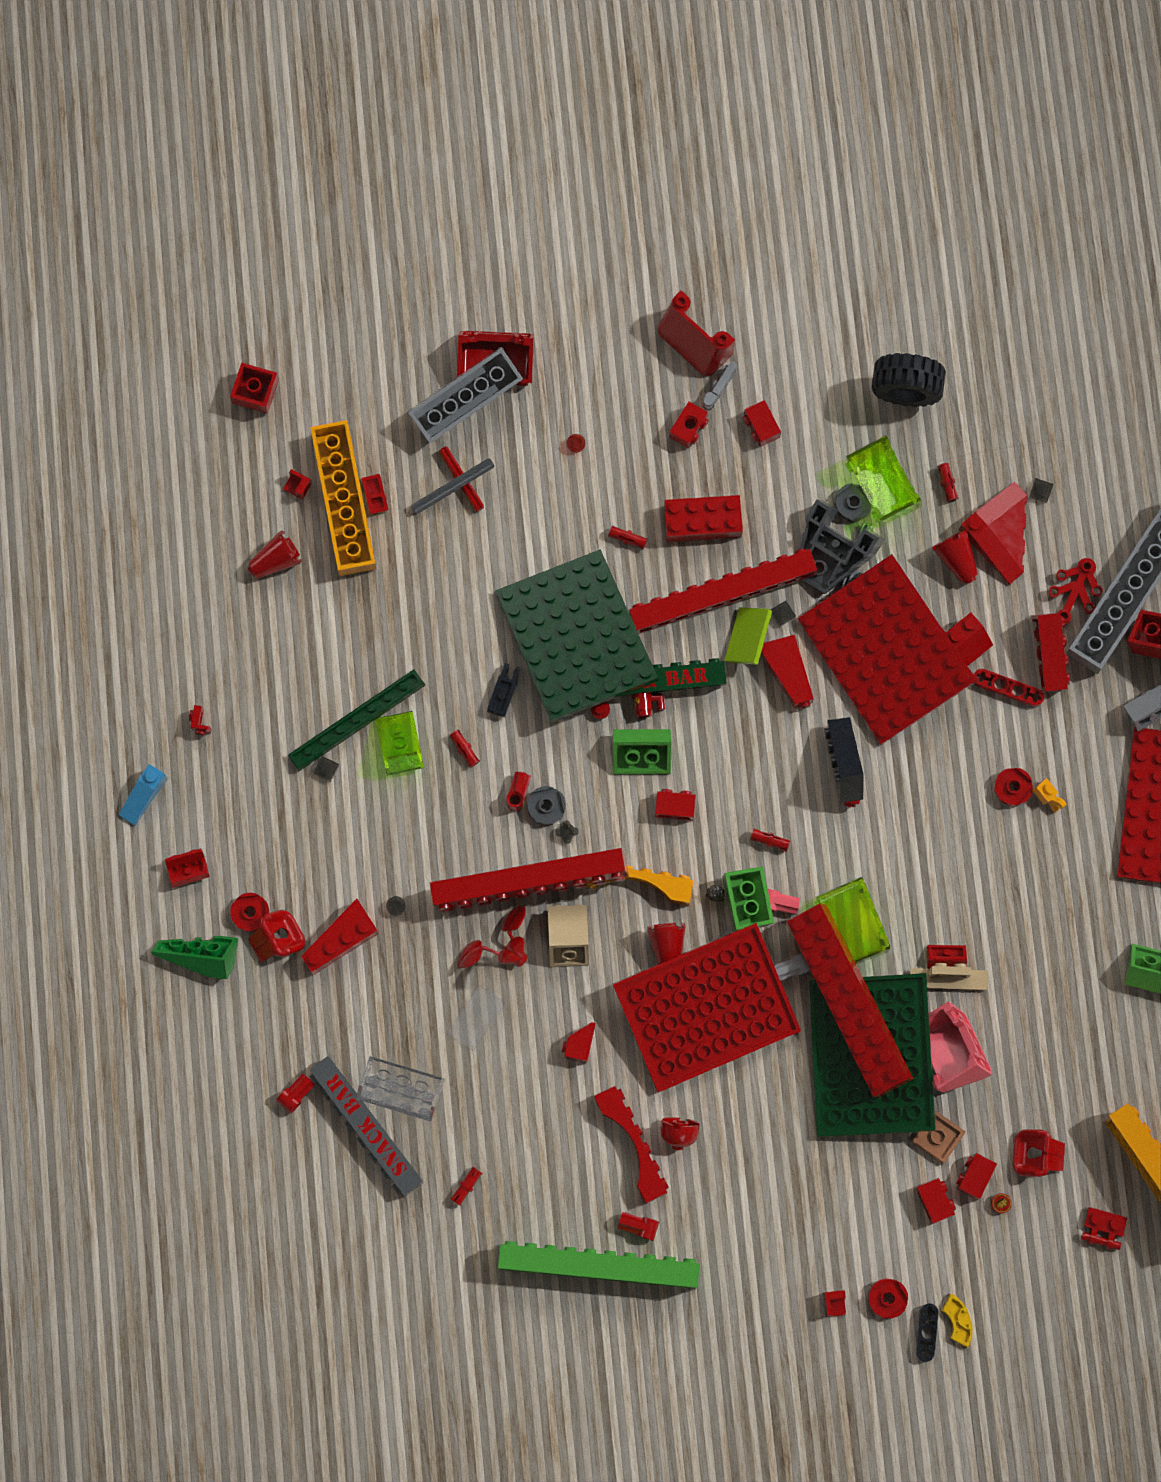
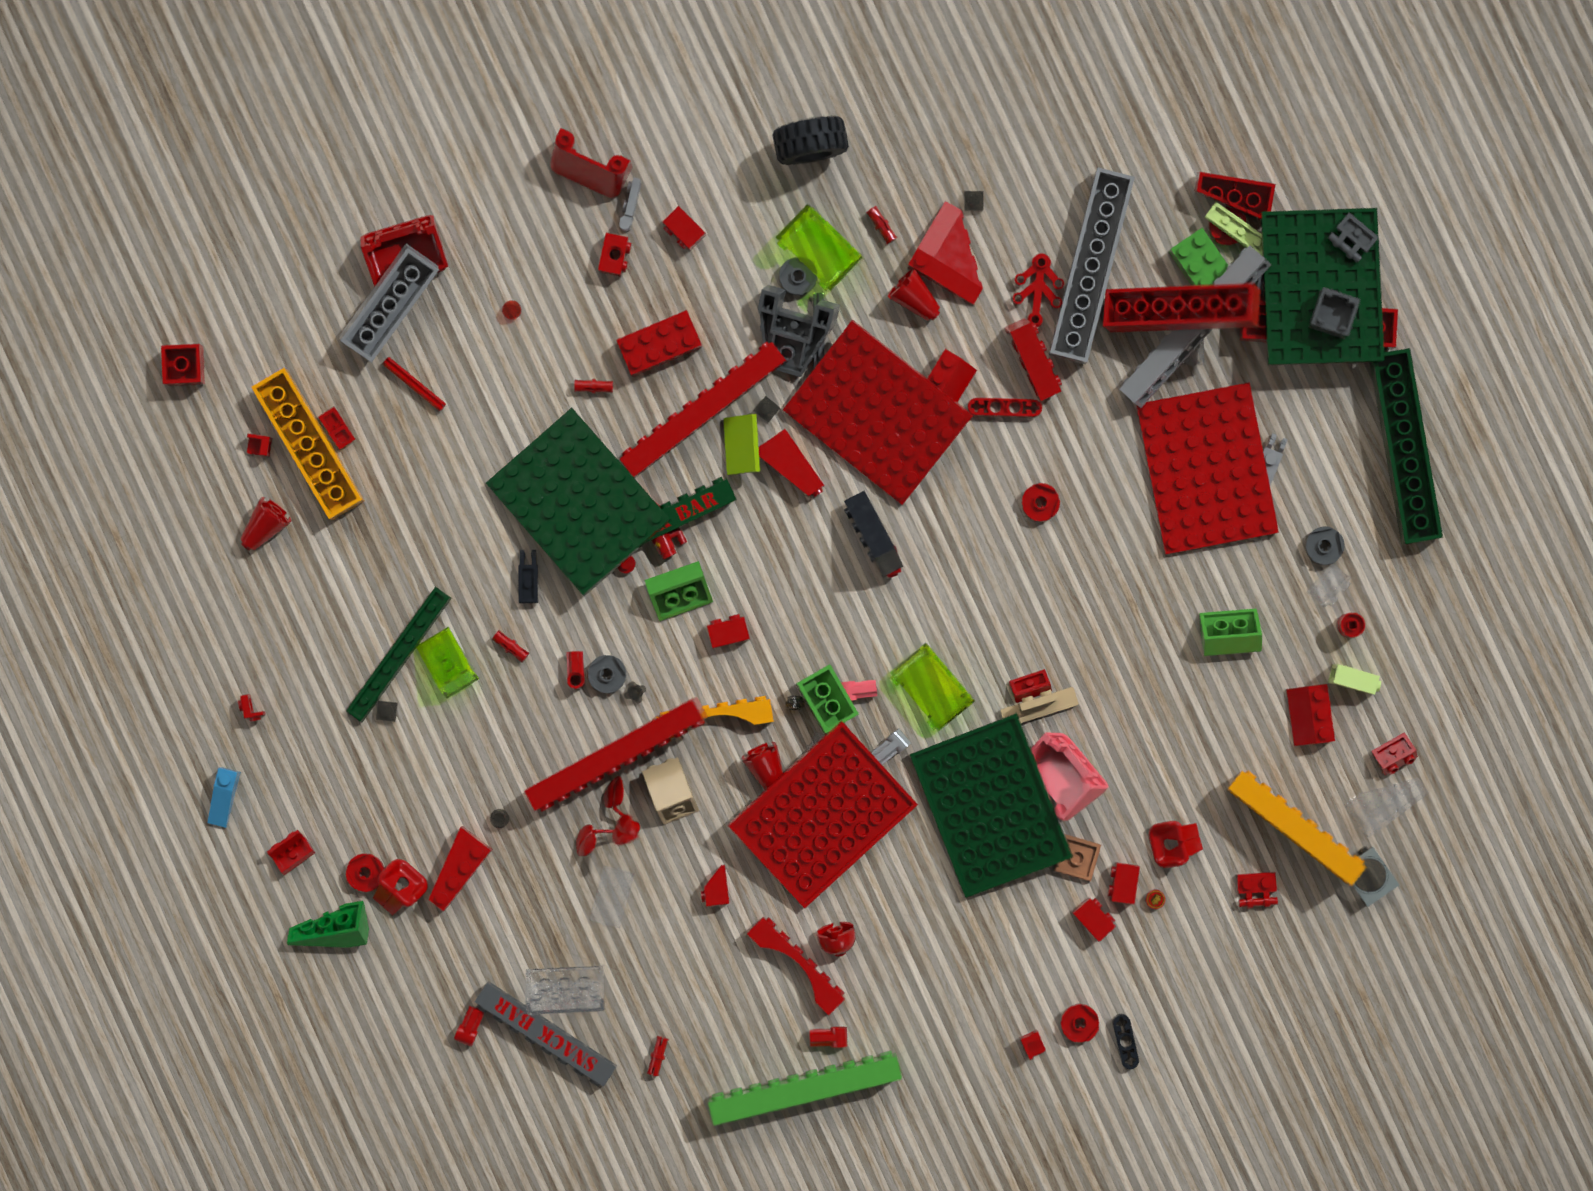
camera: 15 degrees left, 10 degrees up
(452, 486) = (408, 395): dark grey axle -> none
(770, 840) = (828, 633): red pin -> none
(849, 1000) = (953, 763): red brick -> none
(959, 1319) = (1152, 1019): yellow tile -> none
(1047, 794) = (1074, 498): light orange plate -> none

